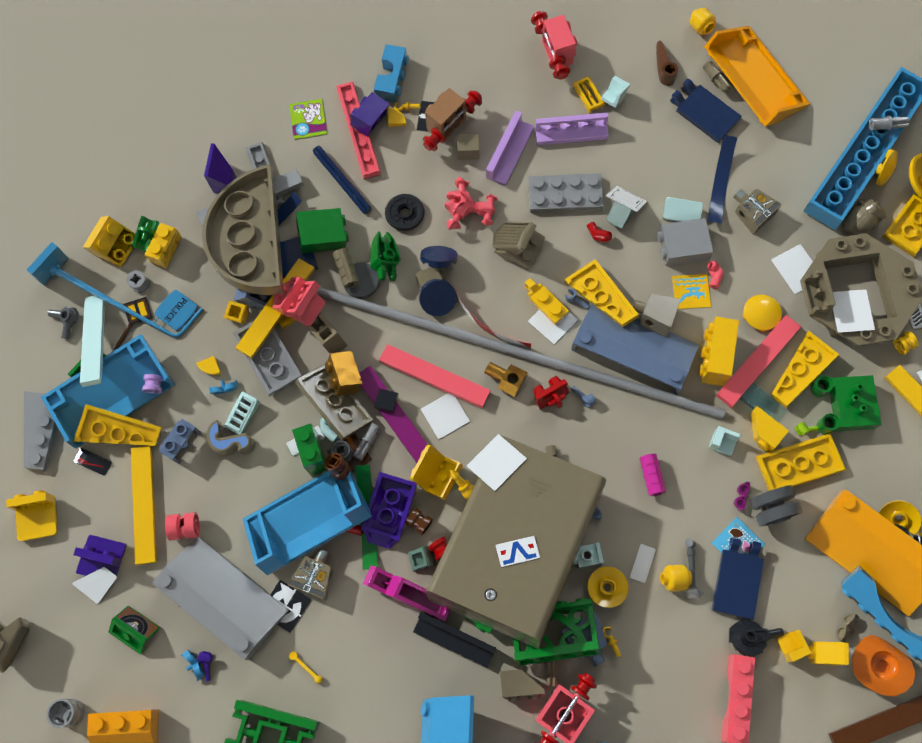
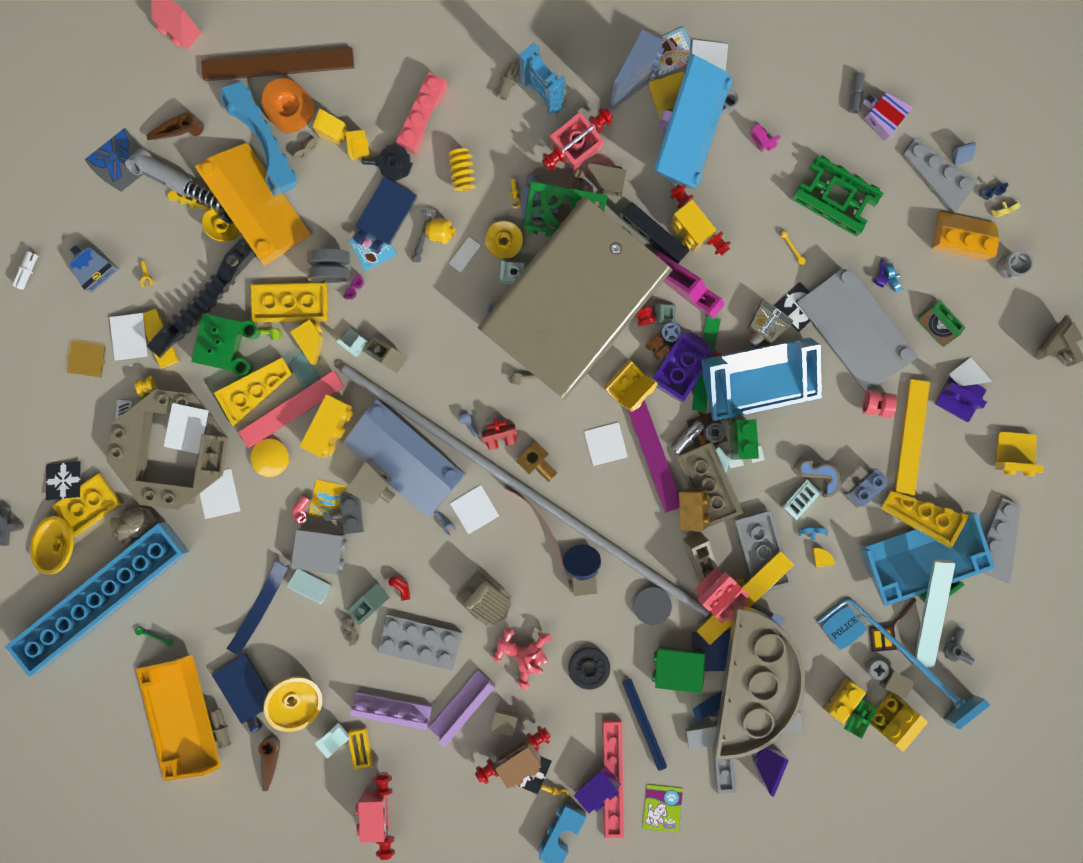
camera: 170 degrees left, 15 degrees up
(92, 461) = (953, 494): black sticker -> none
(117, 272) = (897, 684): none -> dark tan panel
(152, 383) = (882, 551): lavender wheel -> none
(236, 312) = (784, 605): yellow brick -> none
(337, 466) = (723, 414): reddish brown wheel -> none
(346, 268) = (665, 619): dark tan axle -> none
(384, 256) = (622, 622): green hinge -> none
(386, 400) = (659, 471): black tile -> none
(395, 118) = (570, 780): yellow tile -> none
(407, 538) = (672, 330): none -> sand blue wheel
(415, 656) = (694, 225): none -> yellow brick
(434, 376) = (606, 484): coral tile -> none
(438, 256) = (568, 605): dark blue tile -> none
(464, 485) = (607, 367): yellow bar -> none
(496, 462) = (574, 371): white sticker -> none
(517, 551) = (579, 281): white sticker -> none
(546, 301) = (475, 529): yellow hinge -> none
(602, 292) = (418, 522): yellow wing -> none
(626, 198) = (362, 613): white sticker -> none
(634, 189) = (349, 624): none -> dark tan piece
(652, 475) = (429, 329): dark pink axle -> none
(661, 109) = (293, 713): none -> yellow dish
(667, 283) = (350, 514): none -> dark grey plate
(675, 649) = (460, 169): none -> yellow piece
(688, 437) = (385, 354): none -> dark tan slope
(702, 21) = (211, 799): yellow head -> none
(755, 209) = (236, 566): dark tan torso -> none
(819, 134) = (140, 631): none -> green hinge
(885, 435) = (220, 284): none -> black piece
(887, 169) = (93, 565): yellow dish -> none
(888, 123) = (69, 613): light grey axle -> none

